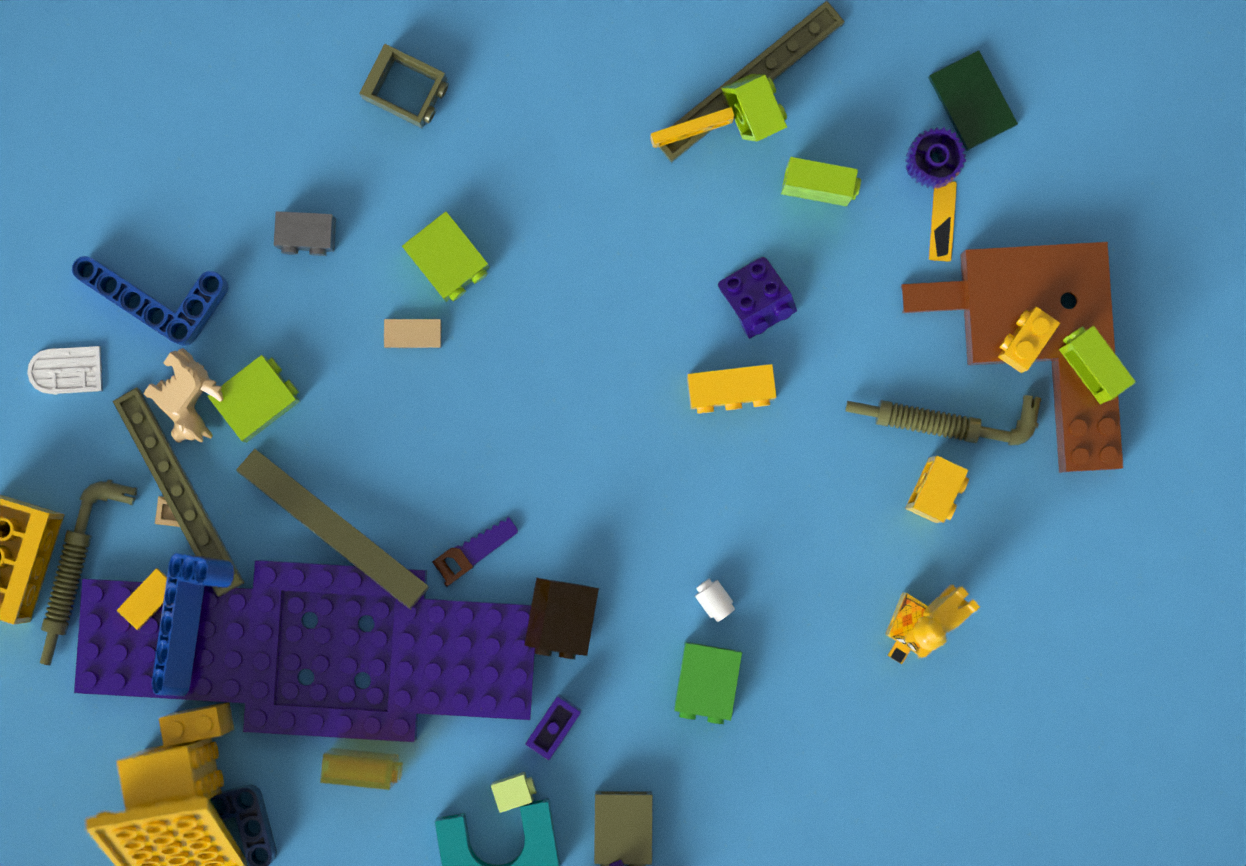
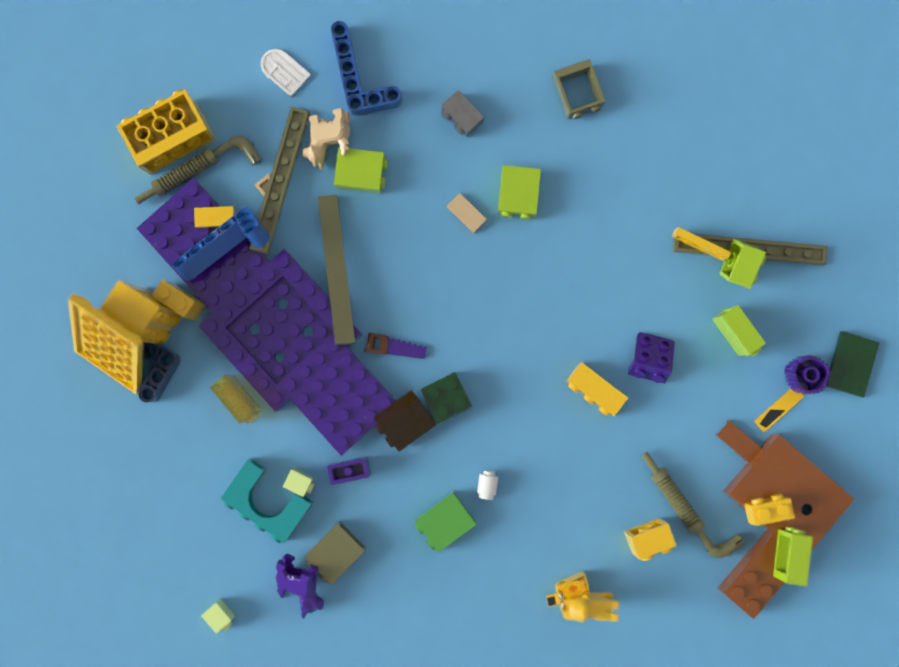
camera: 45 degrees right, 0 degrees up
(580, 550) = (446, 397): none -> dark green piece

